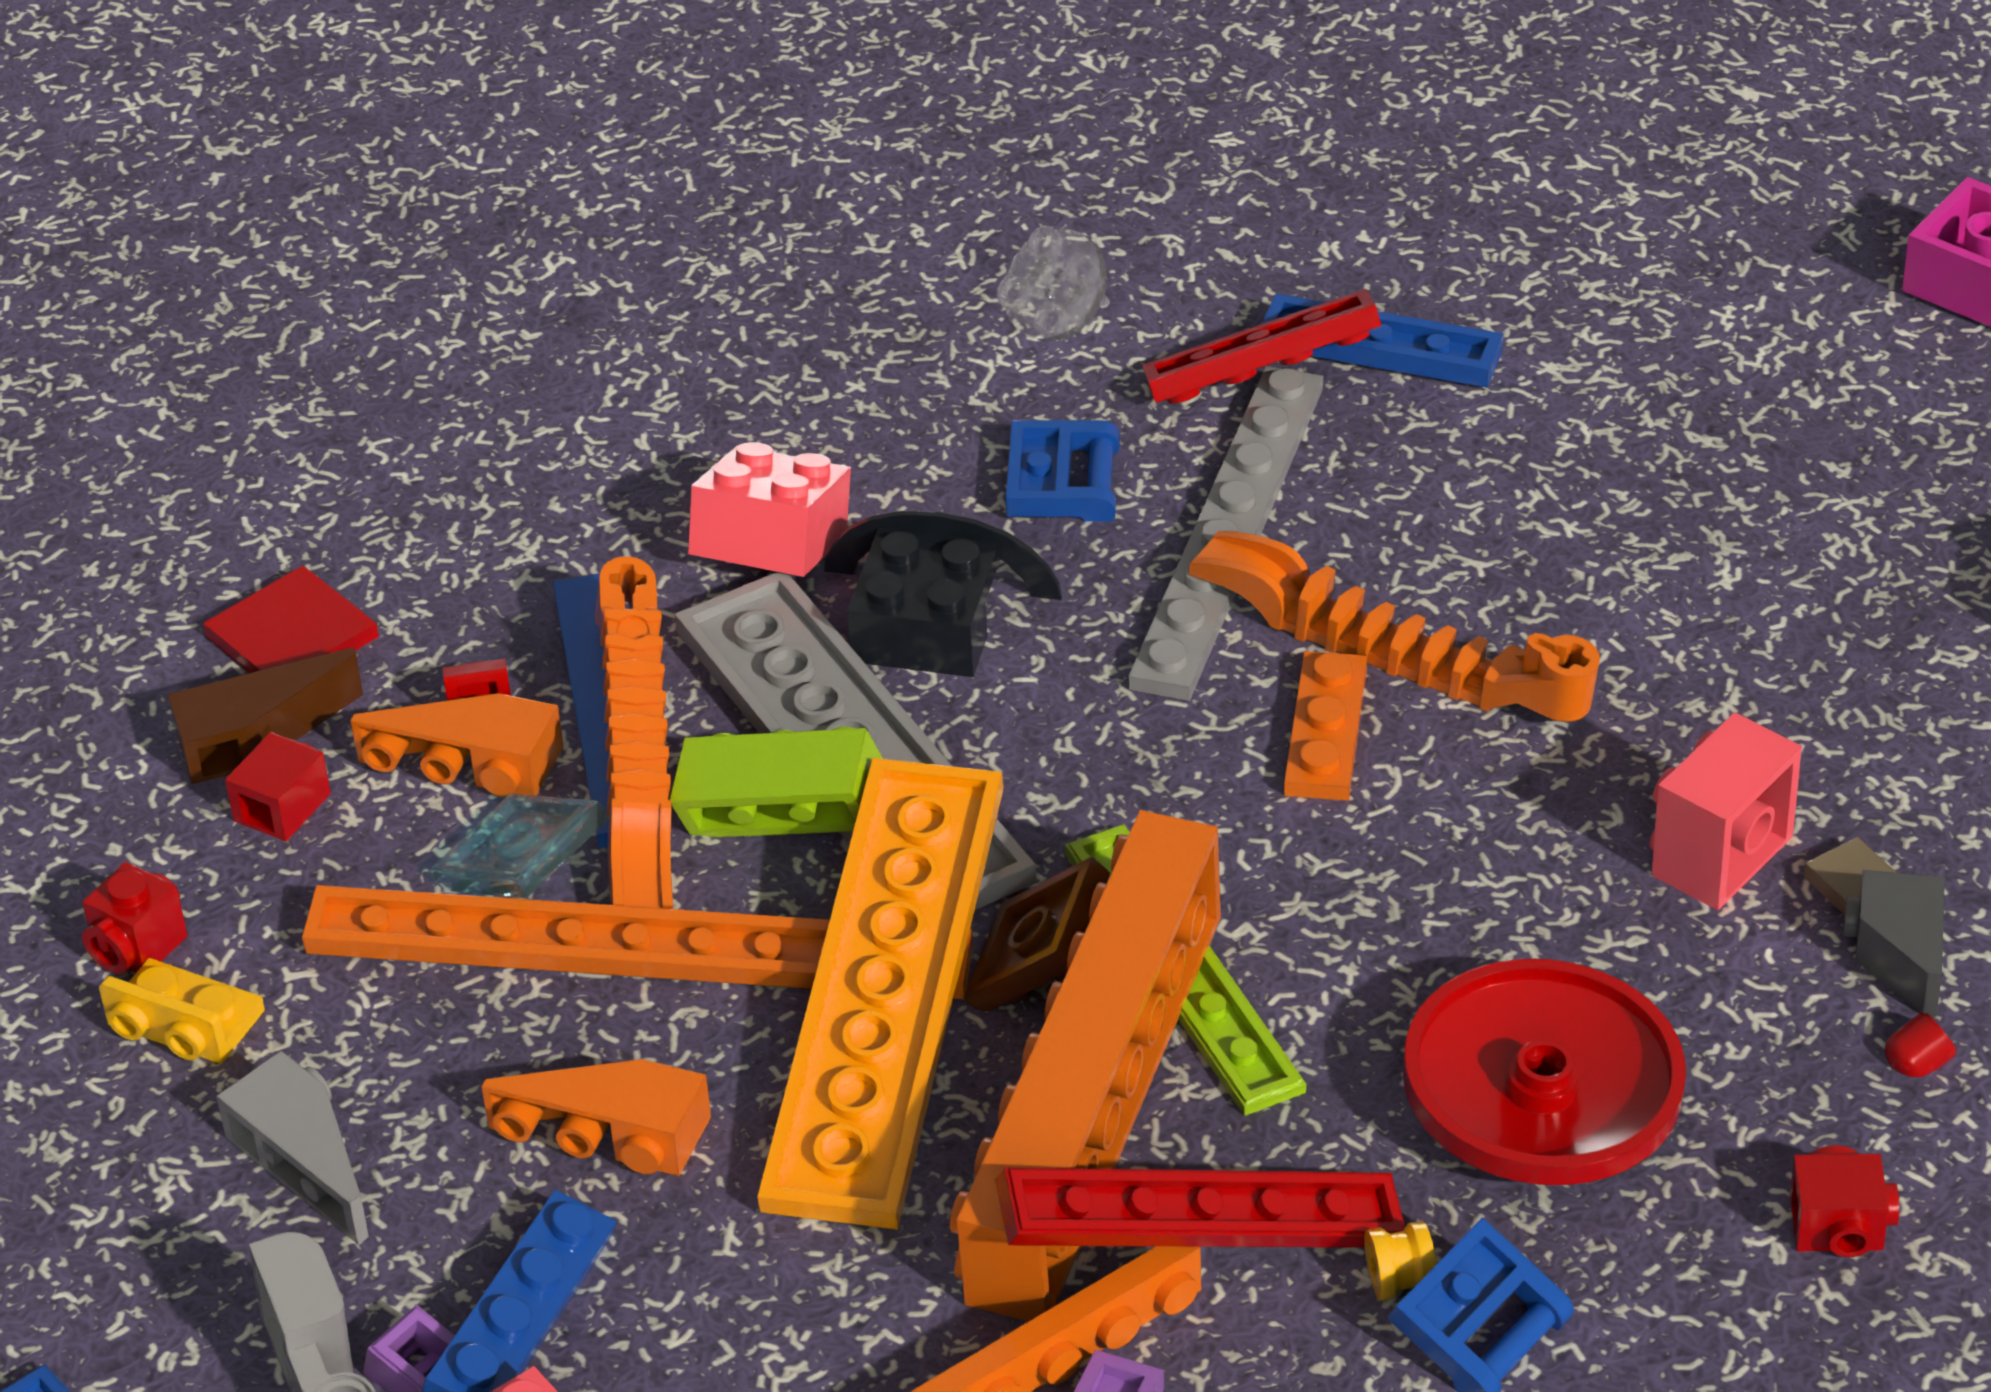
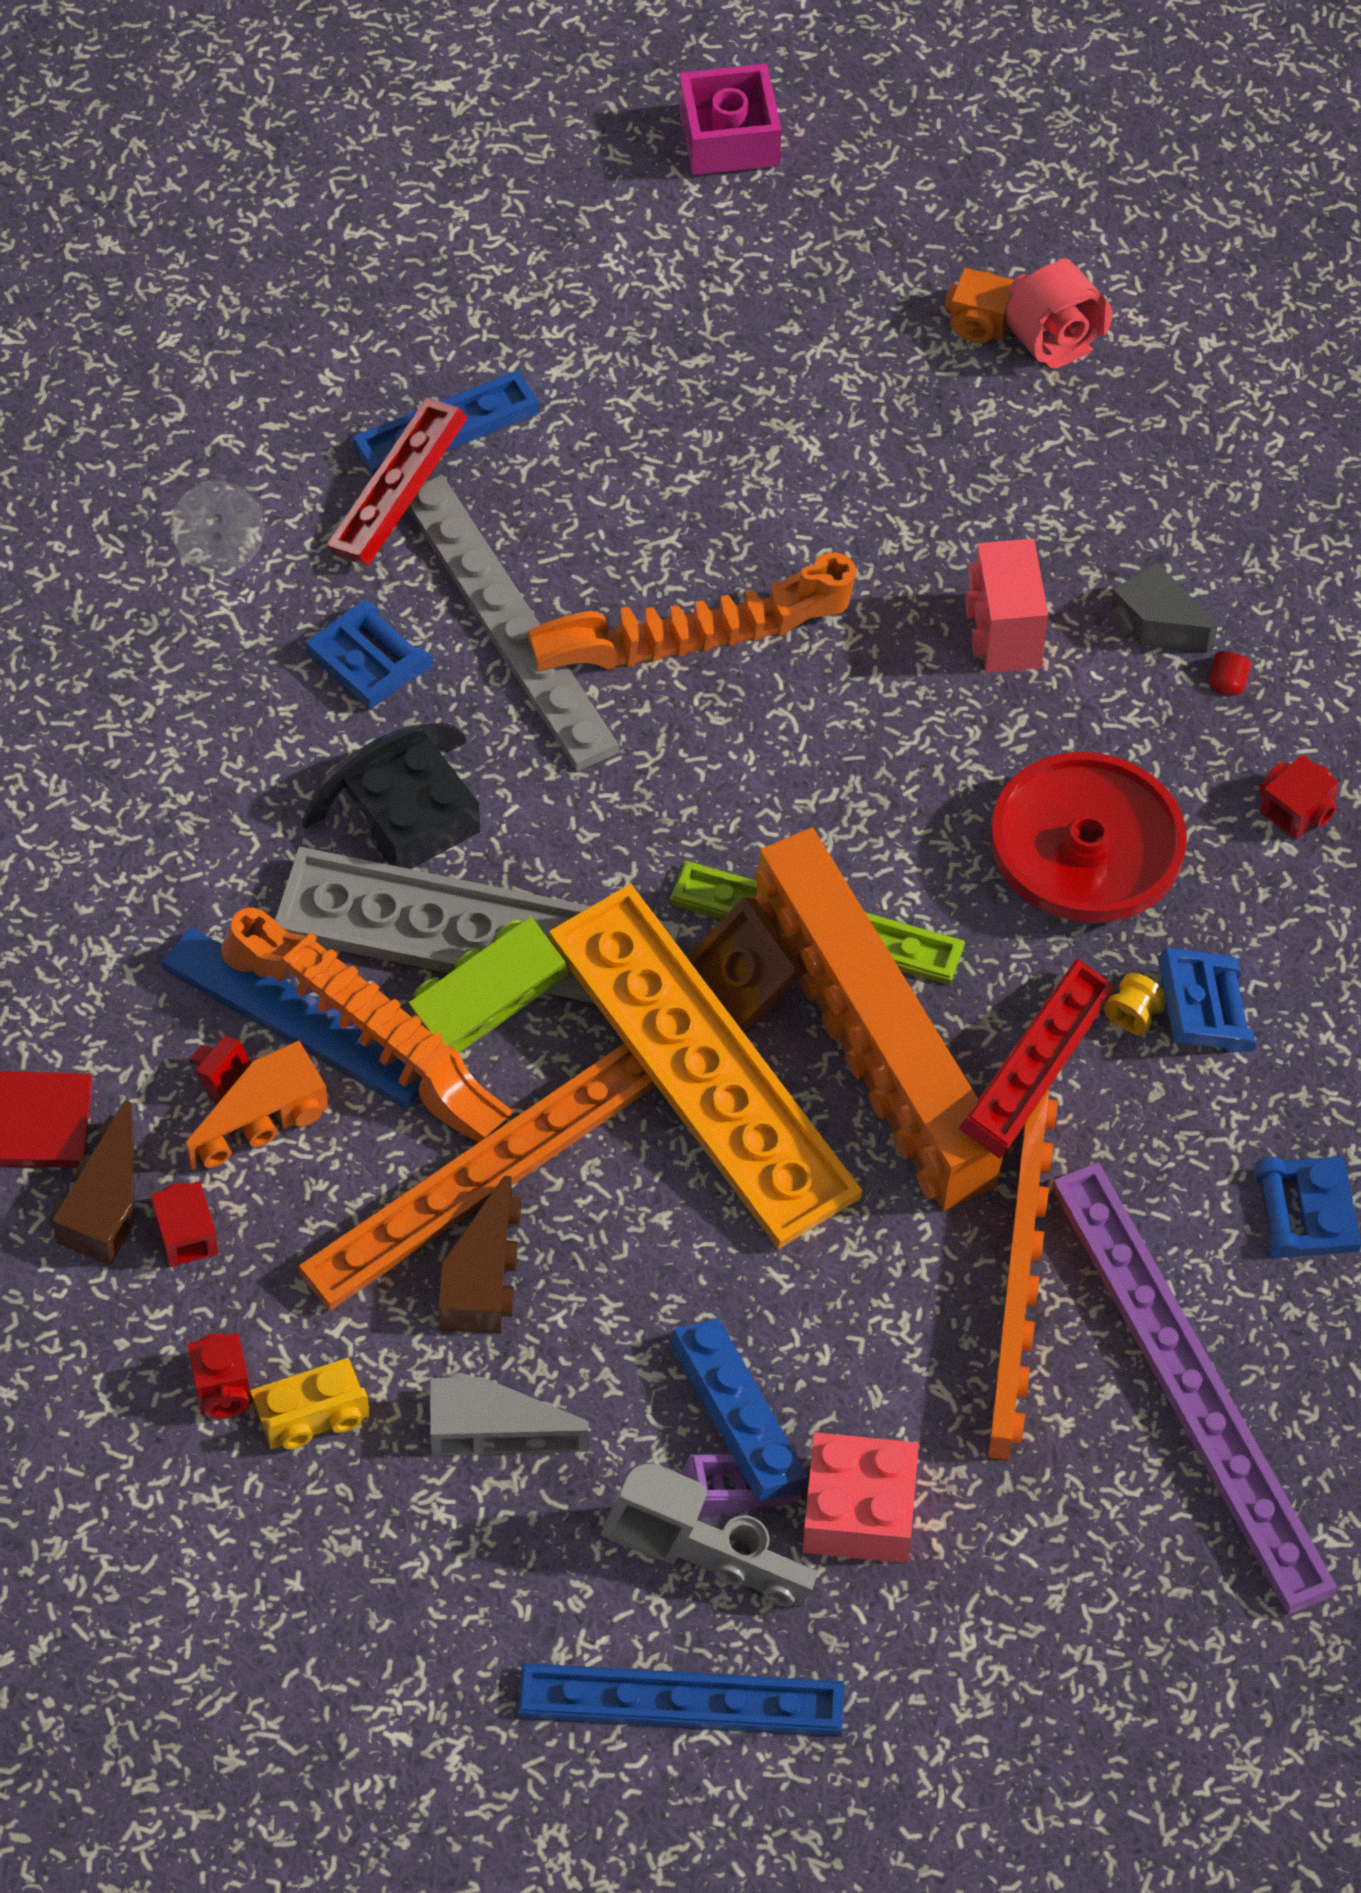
camera: 50 degrees left, 15 degrees up
(431, 1013) = (473, 1272): none -> reddish brown slope
(518, 845) = (377, 1146): clear light blue tile -> none
(650, 1106) = (654, 1240): orange slope -> none
(769, 509) = (252, 814): coral brick -> none
(1326, 726) = (716, 711): orange plate -> none
(1840, 871) = (1087, 594): dark tan tile -> none

